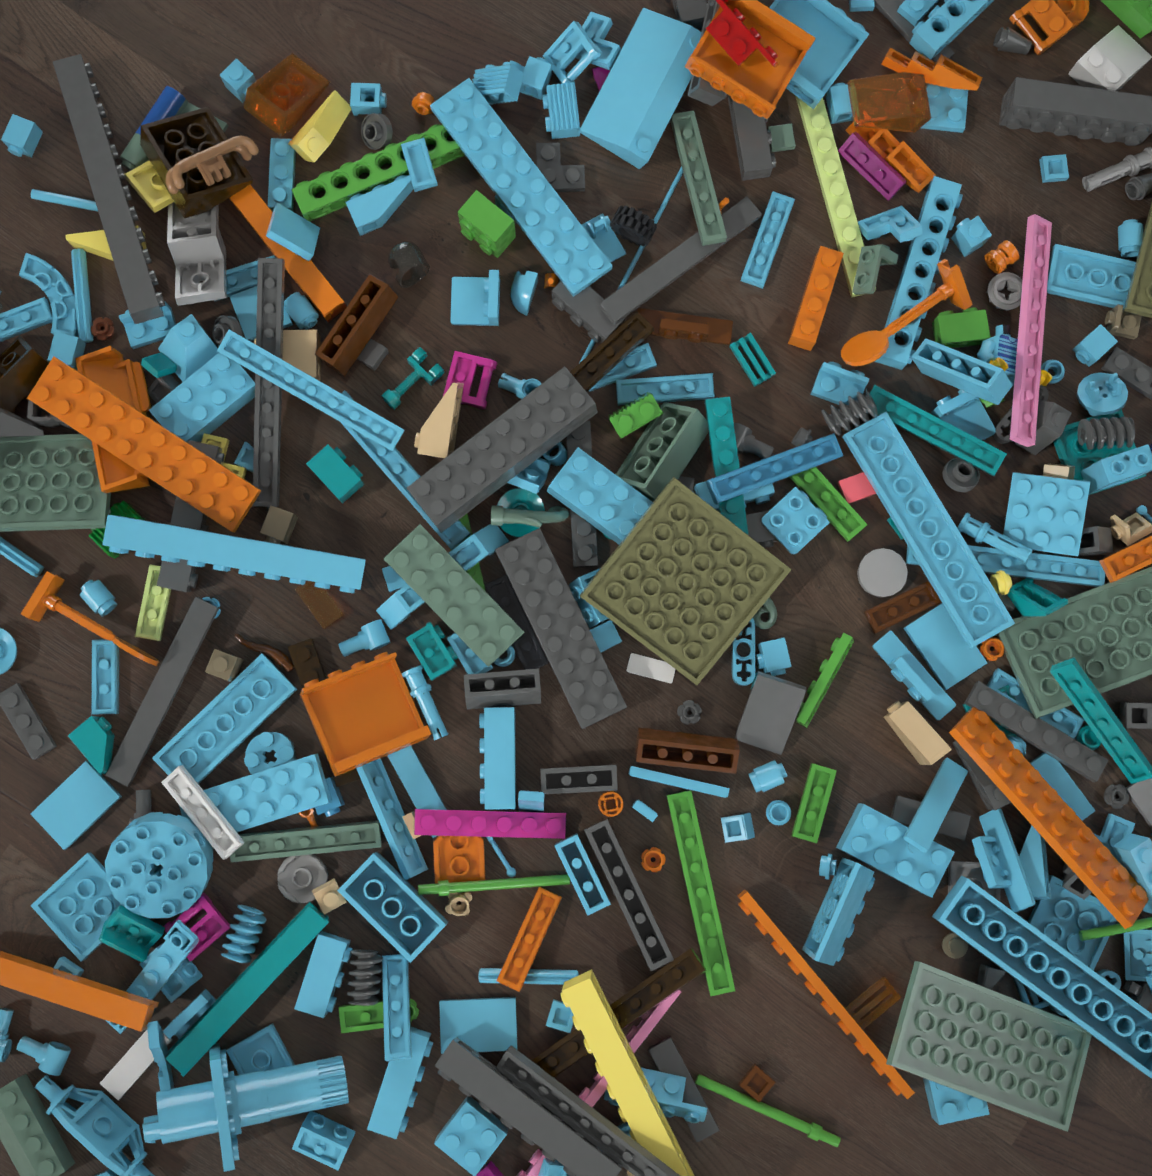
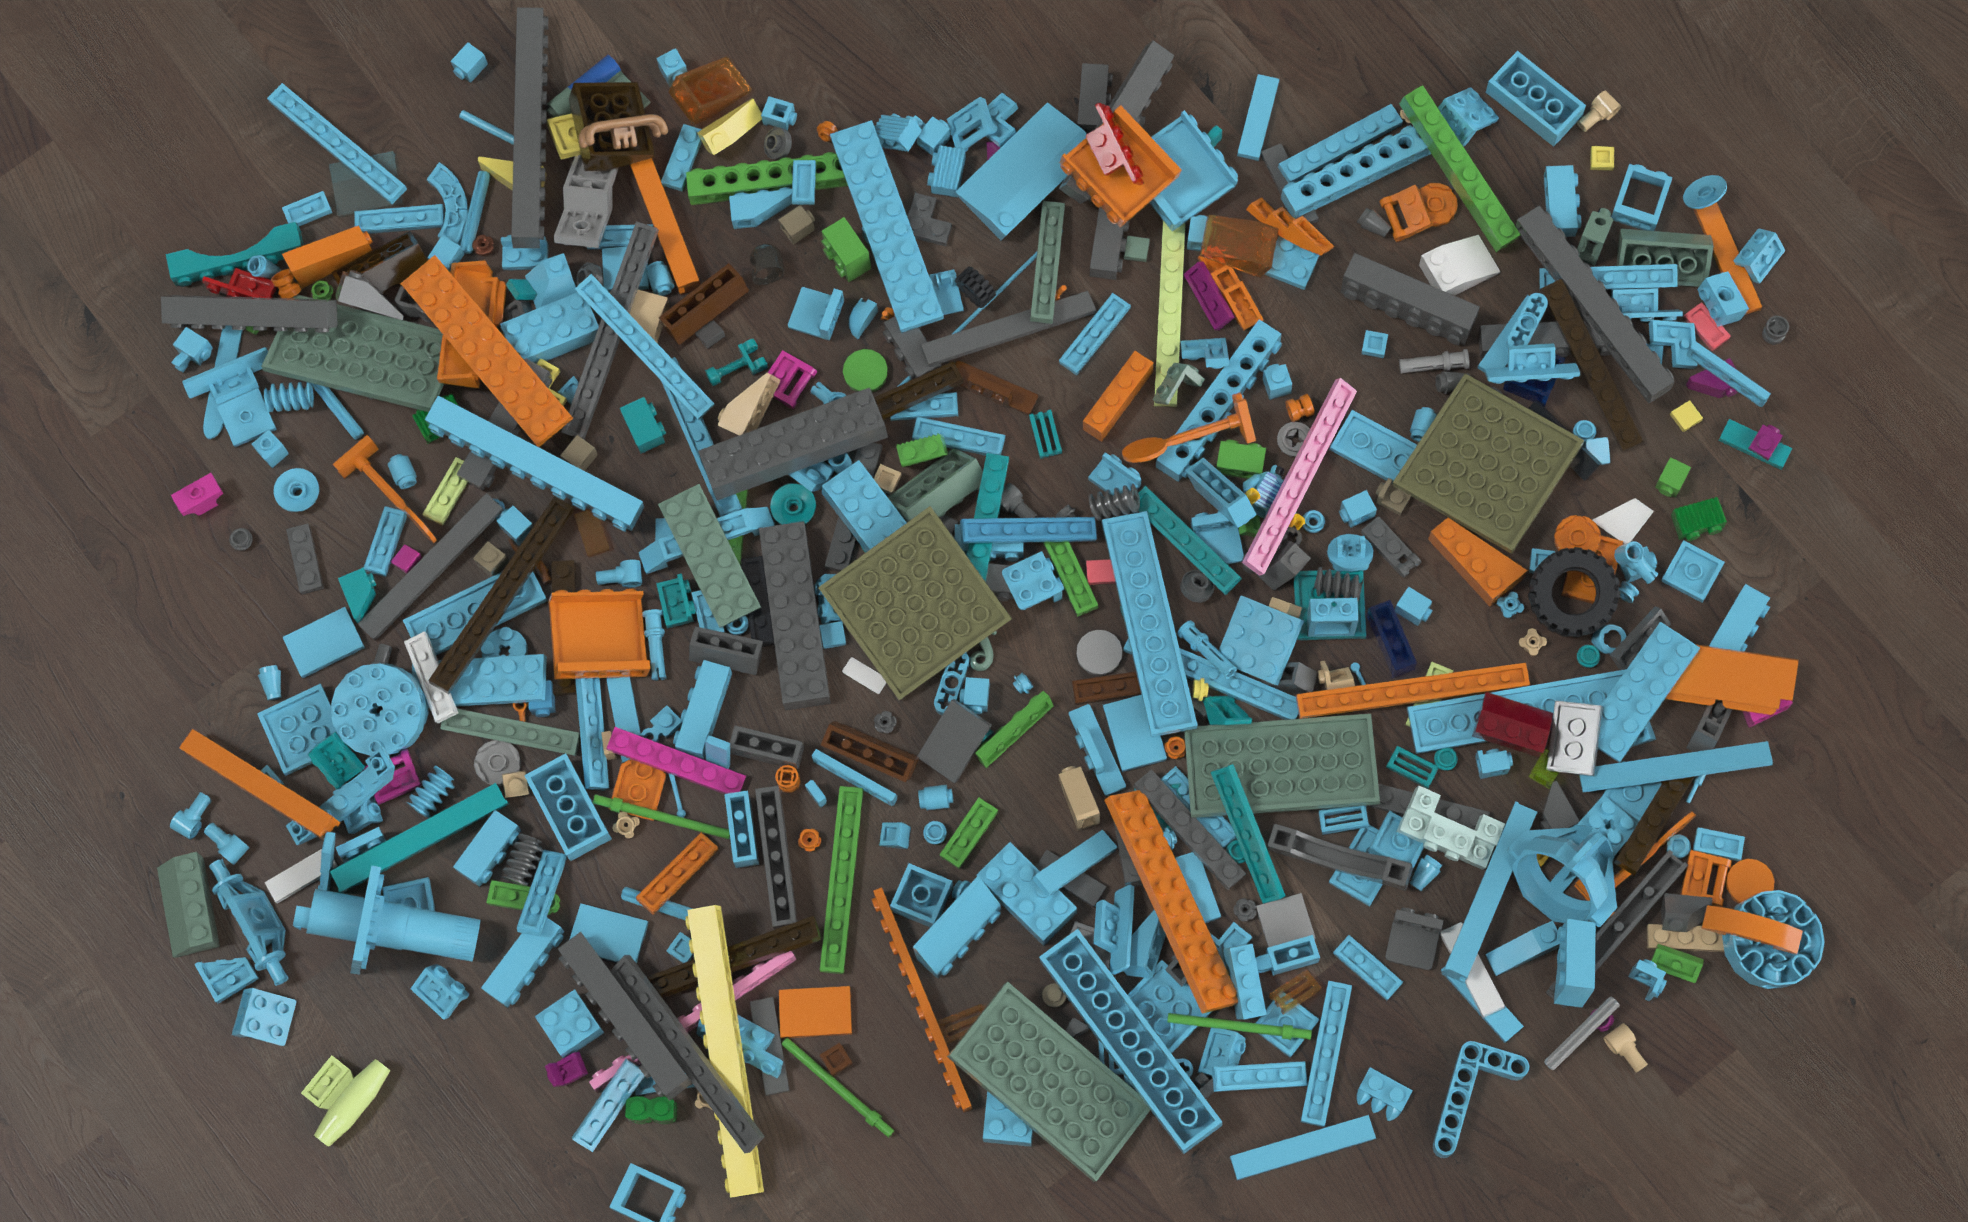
camera: 25 degrees right, 10 degrees down
(34, 865) = (271, 681): none -> medium azure cone
(134, 689) = (406, 559): none -> dark pink slope
(236, 619) = (514, 524): none -> medium azure brick
(247, 703) = (501, 595): none -> dark brown plate
(293, 232) = (675, 208): medium azure tile -> none
(425, 211) = (797, 224): none -> dark tan brick
(462, 782) = (664, 724): none -> medium azure plate
(529, 517) = (774, 501): sand green plant -> none
(546, 347) = (865, 370): none -> bright green tile
(607, 455) = (887, 479): none -> tan plate
(718, 1038) = (815, 1012): none -> orange tile
(790, 887) = (921, 895): none -> medium azure brick
(816, 629) = (1022, 683): none -> medium azure plate

